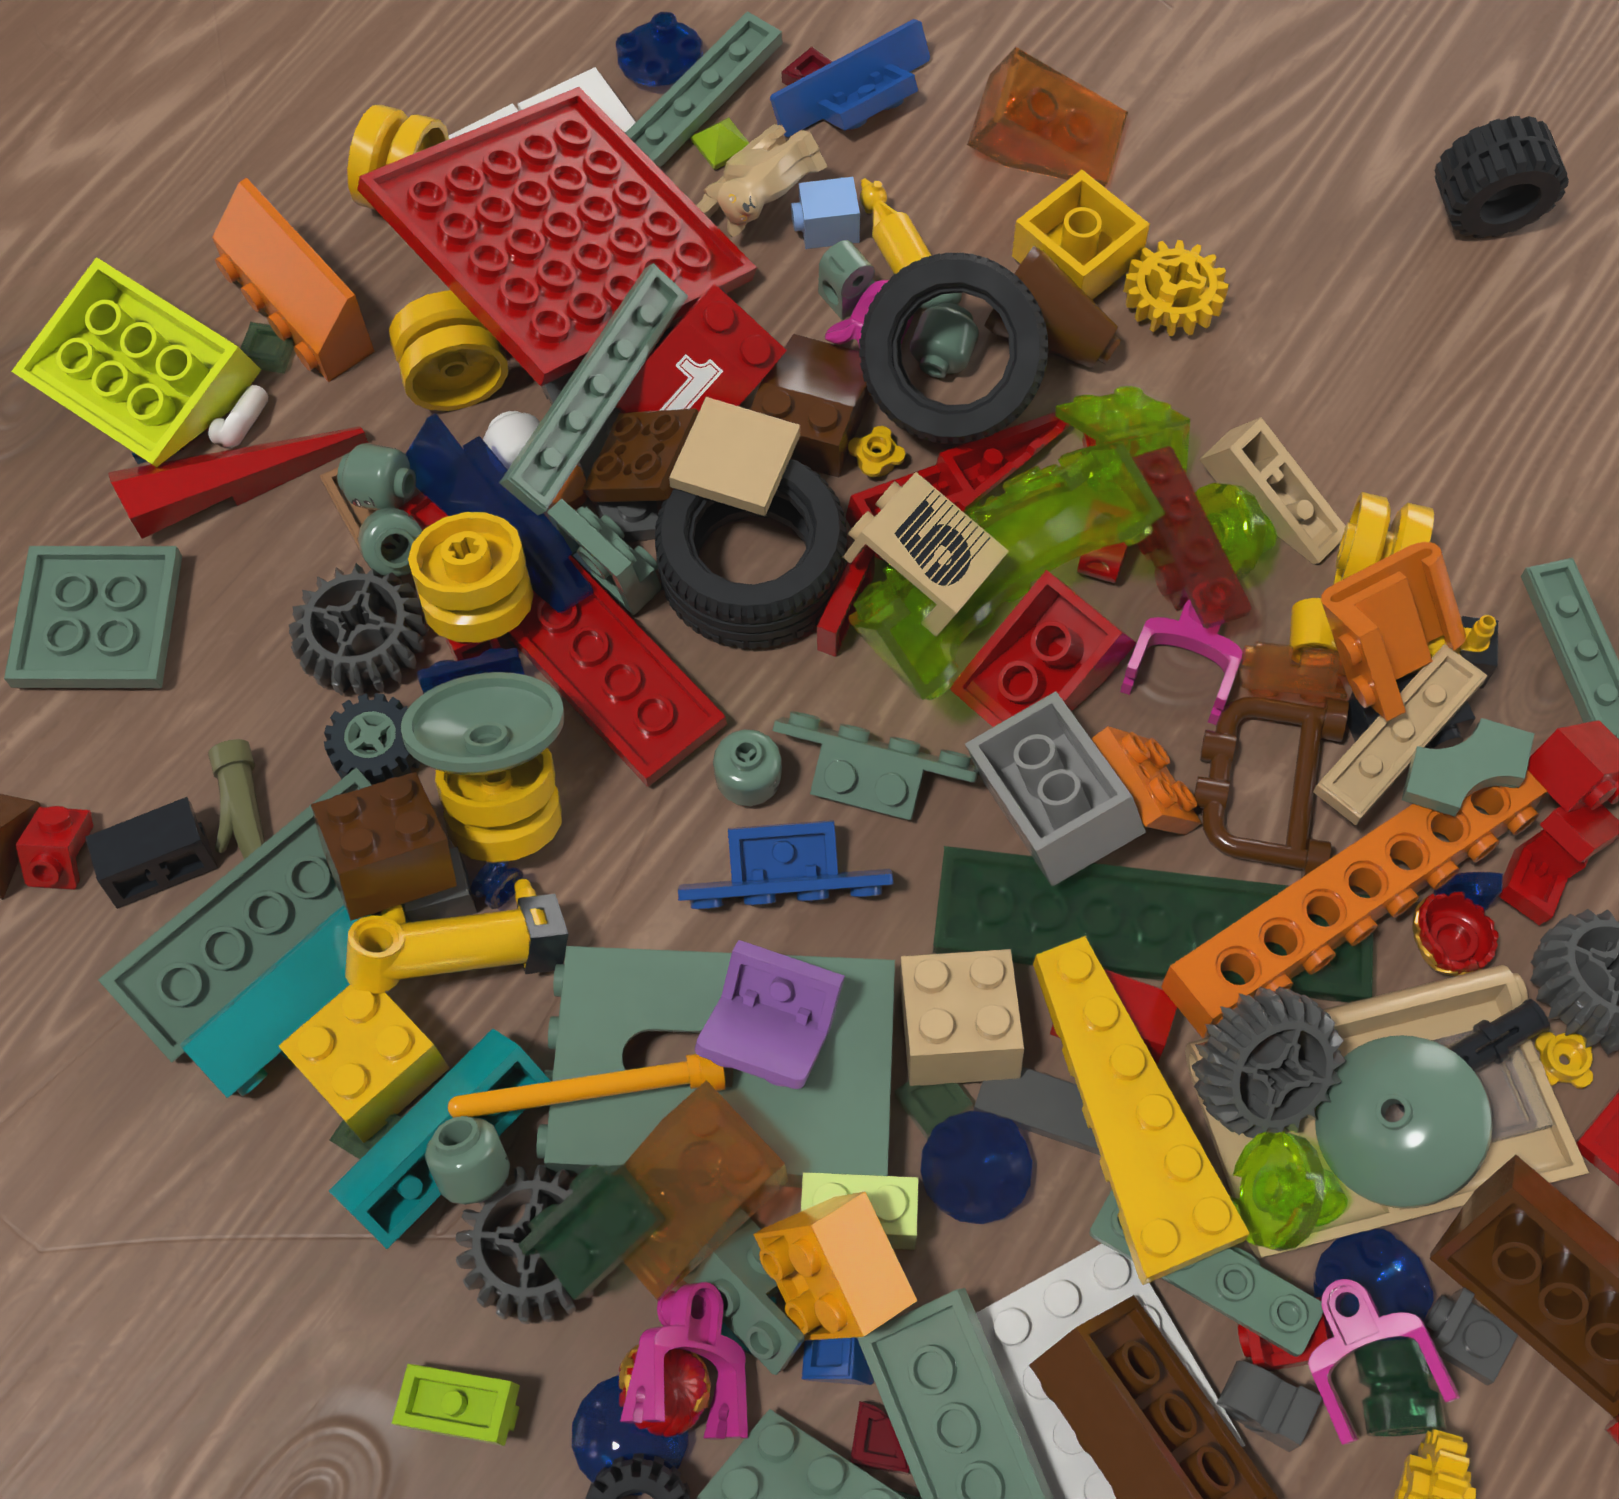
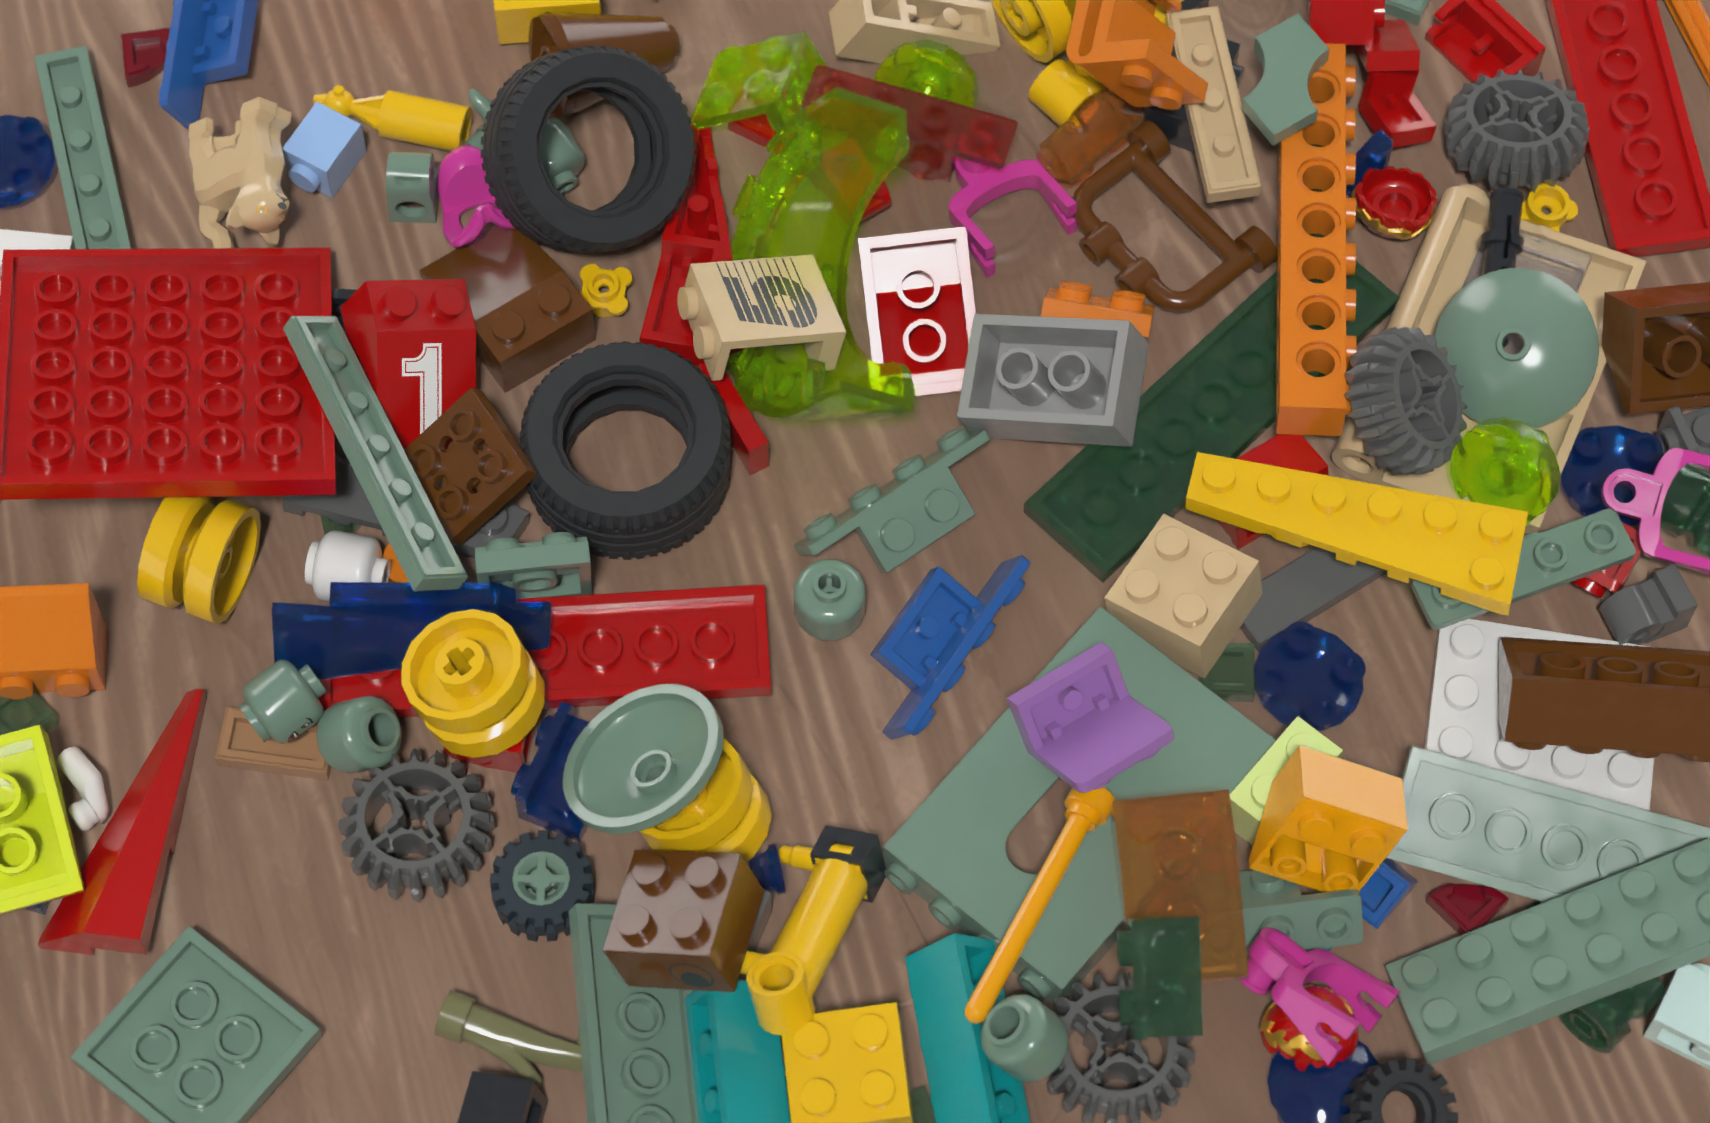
camera: 55 degrees left, 0 degrees up
(719, 142) = (153, 183): lime slope -> none
(735, 456) = (549, 389): tan tile -> none

